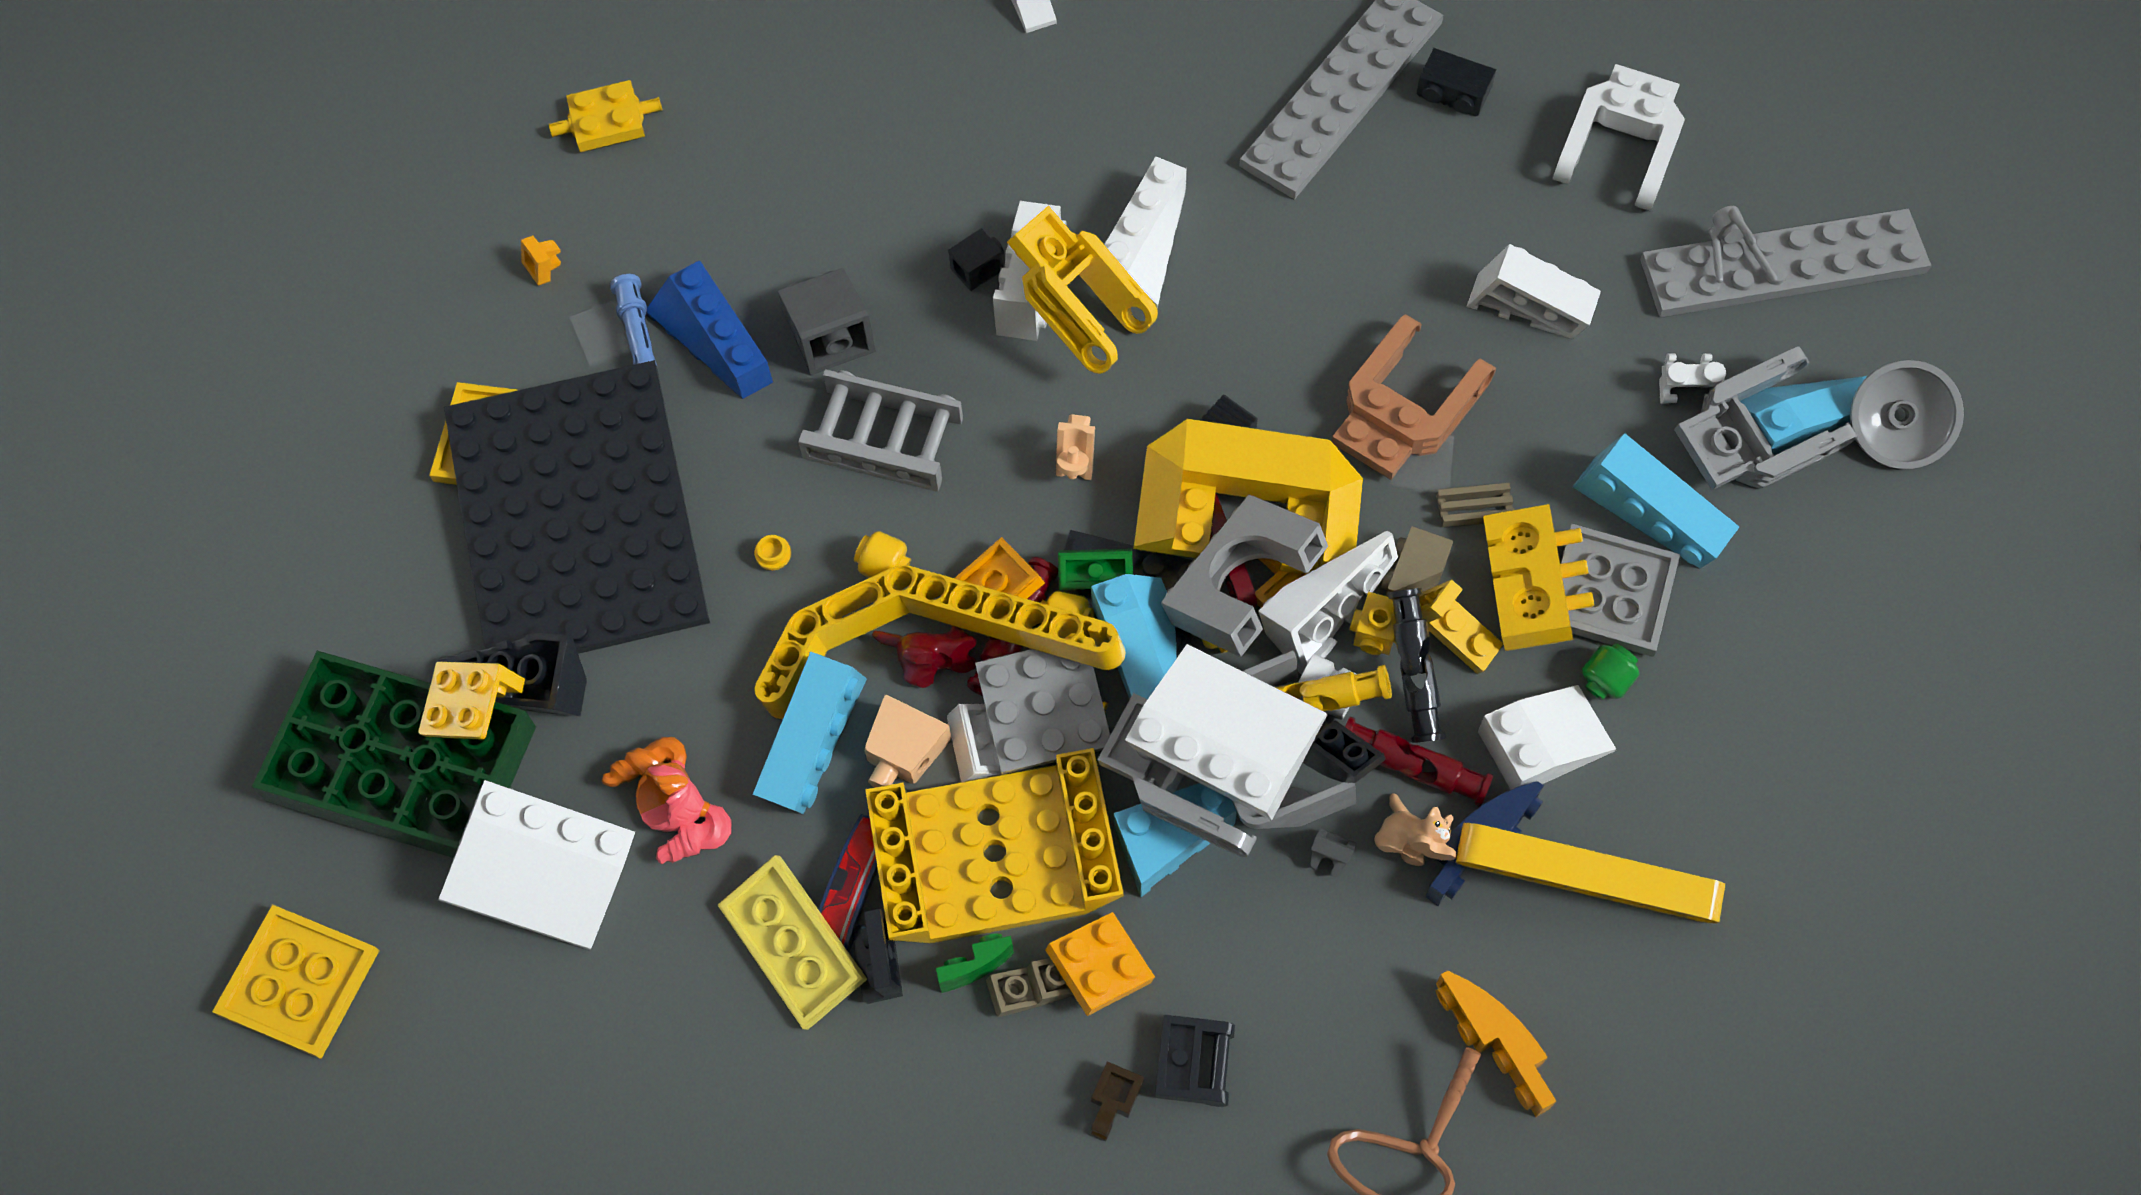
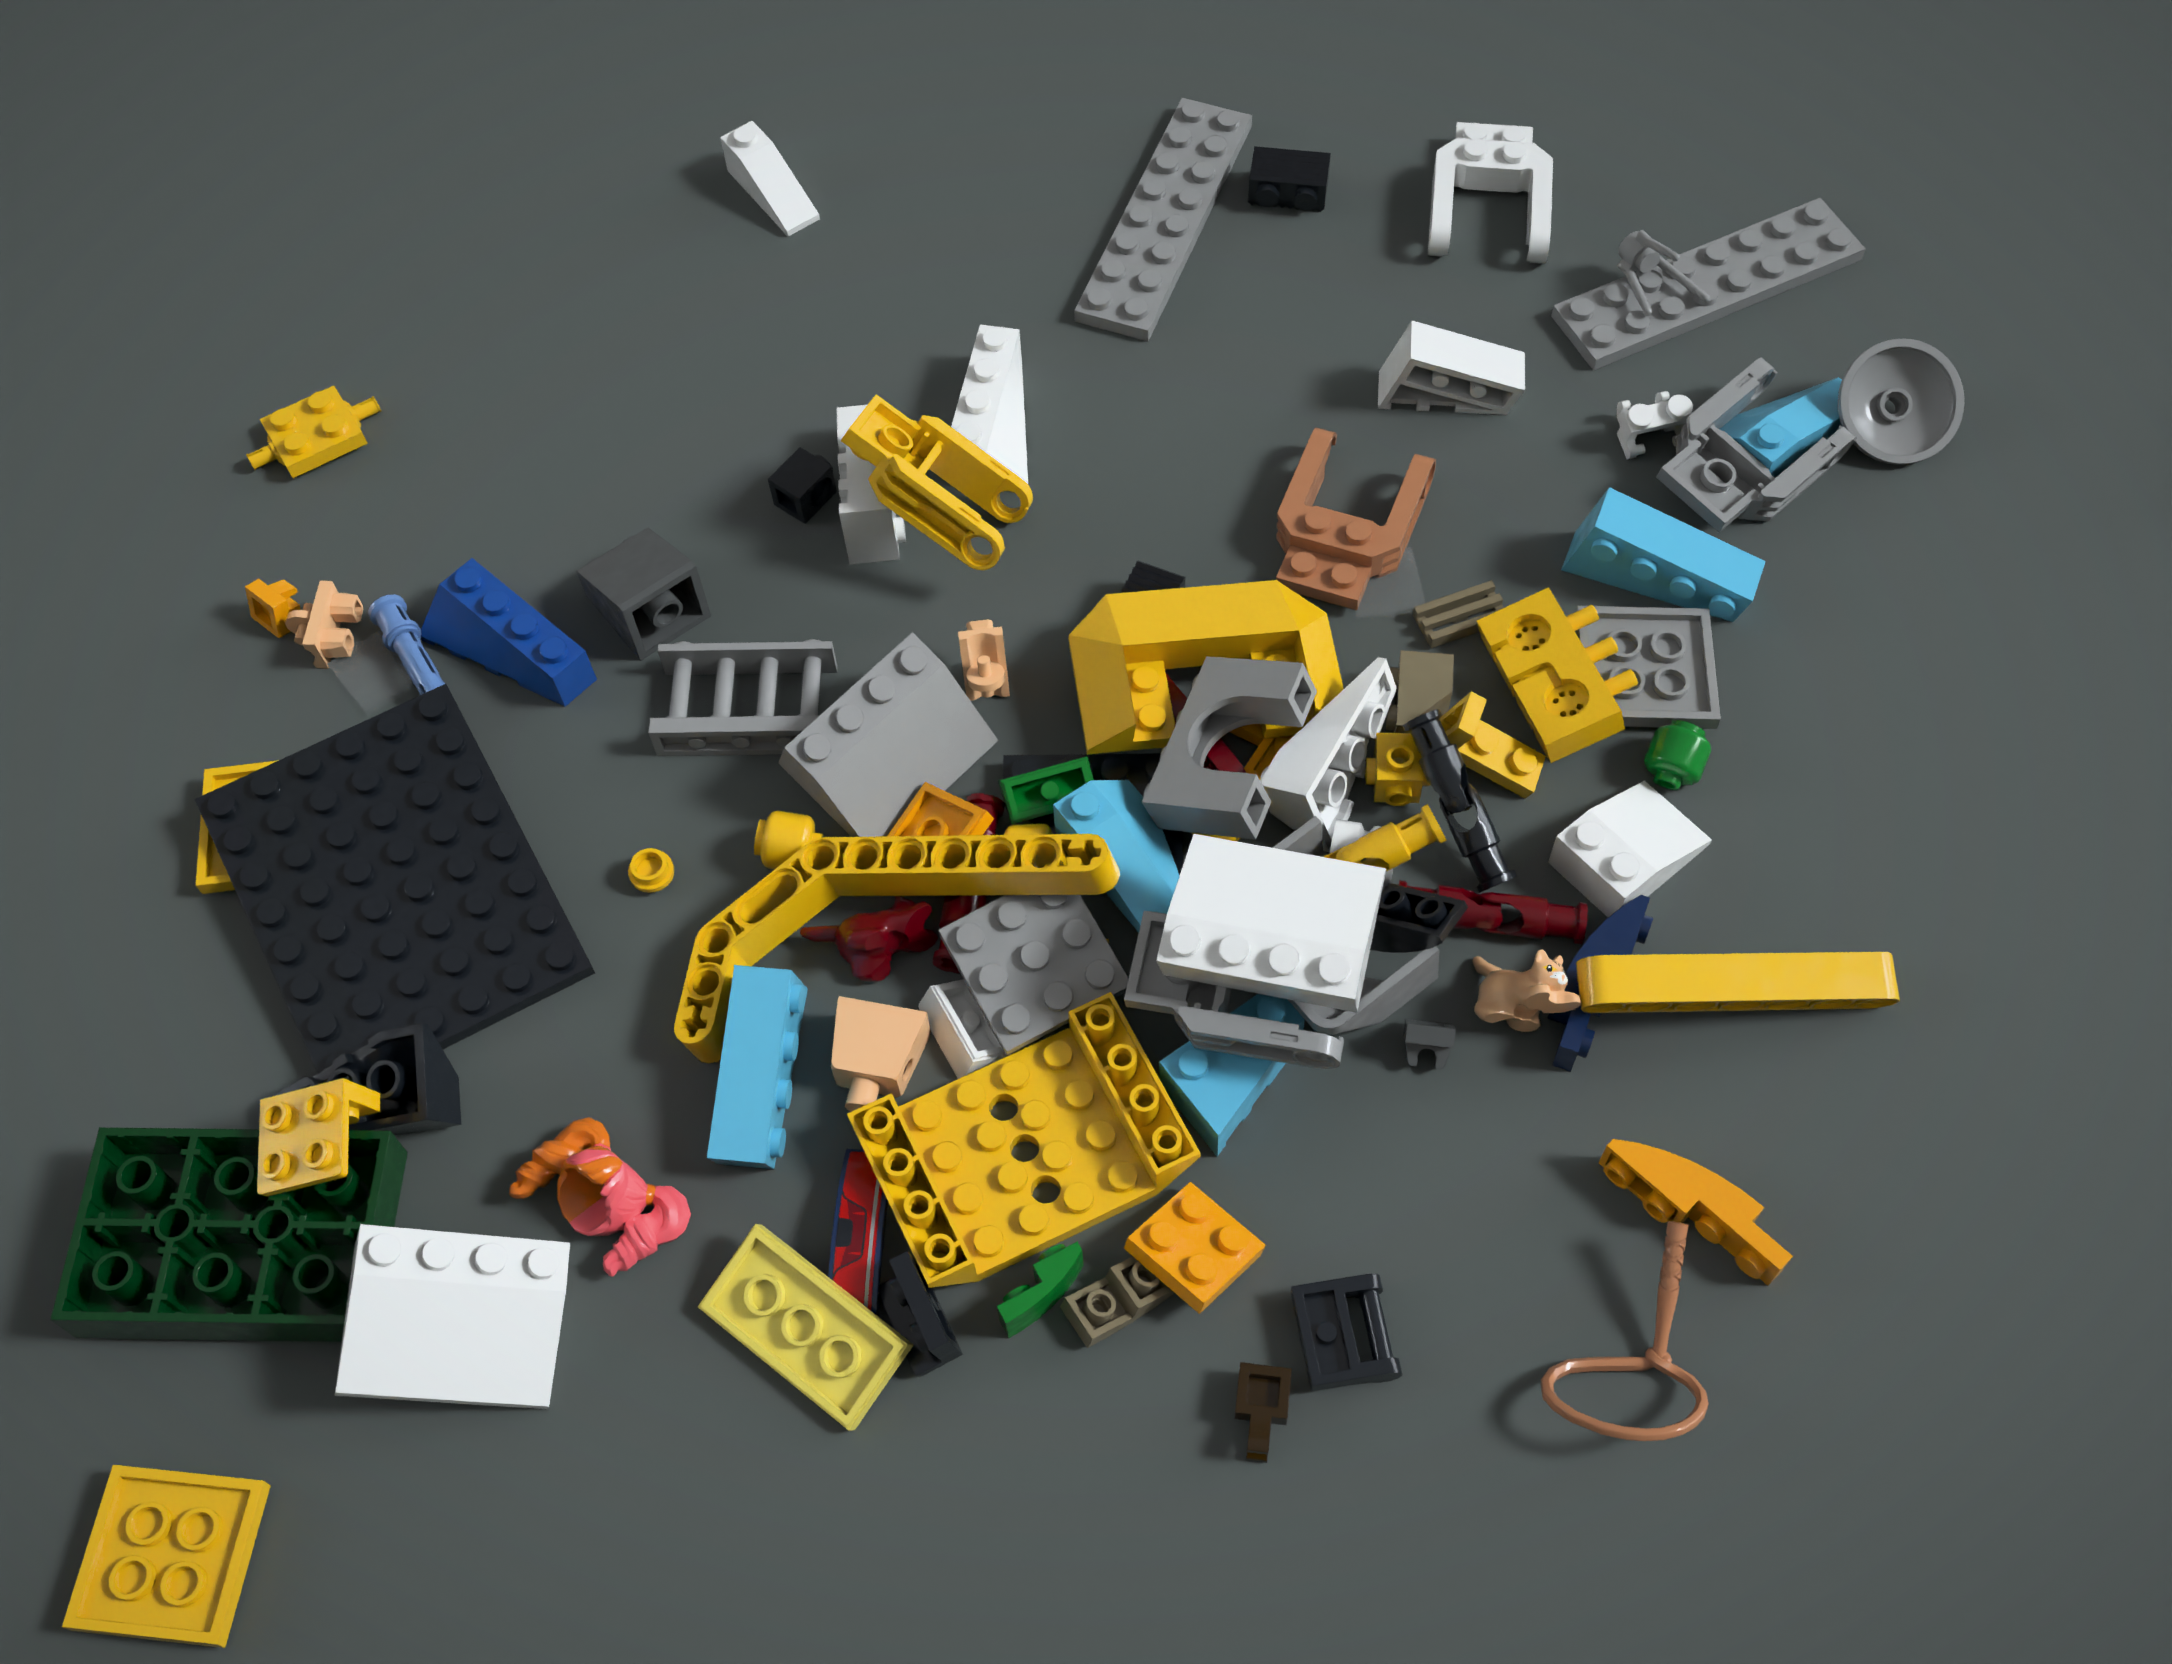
camera: 15 degrees left, 5 degrees down
(571, 282) = (319, 624): none -> light nougat hips
(980, 495) = (886, 739): none -> light grey slope

